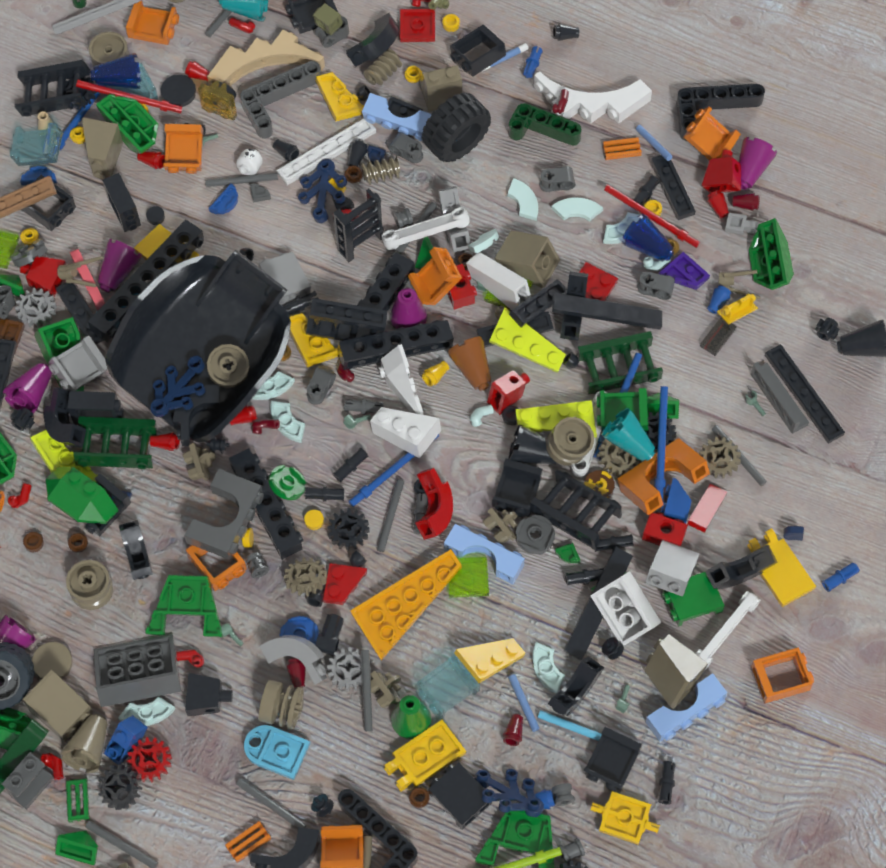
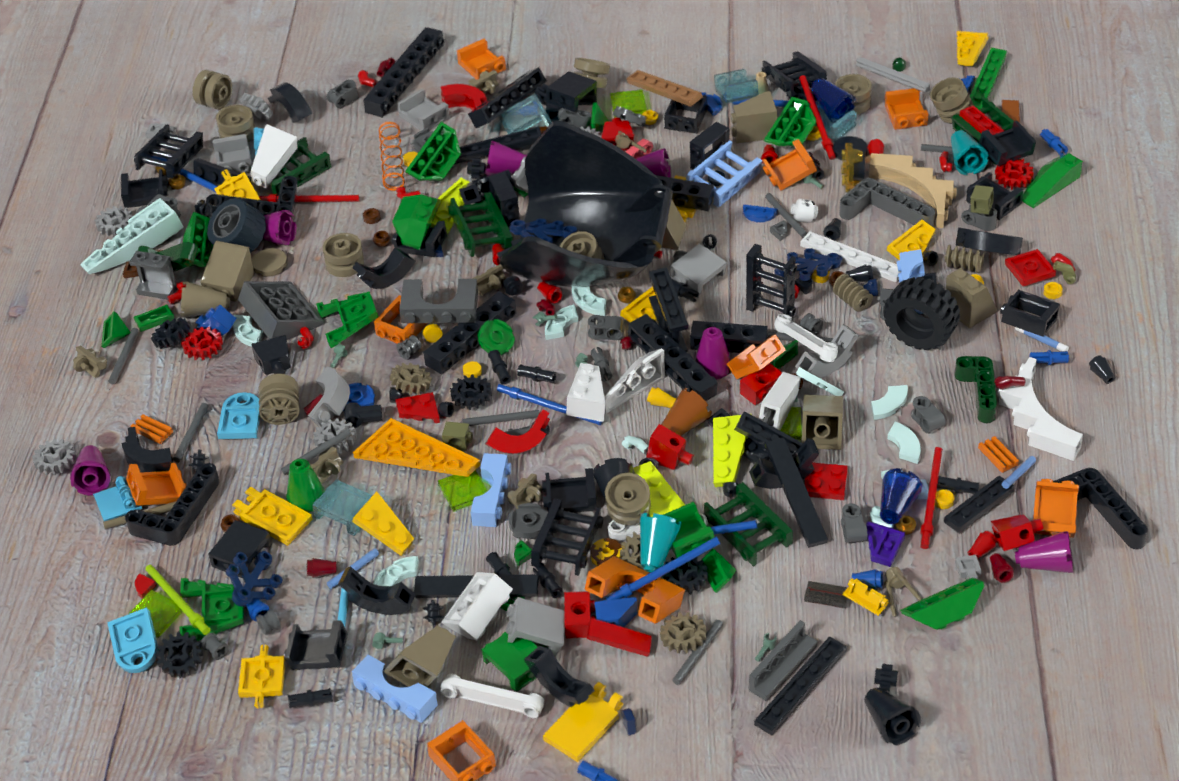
camera: 70 degrees right, 20 degrees down
(171, 193) = (732, 185): none -> light blue fence
(274, 436) = (541, 318): none -> sand green hand
(401, 560) = (457, 435): none -> olive brick

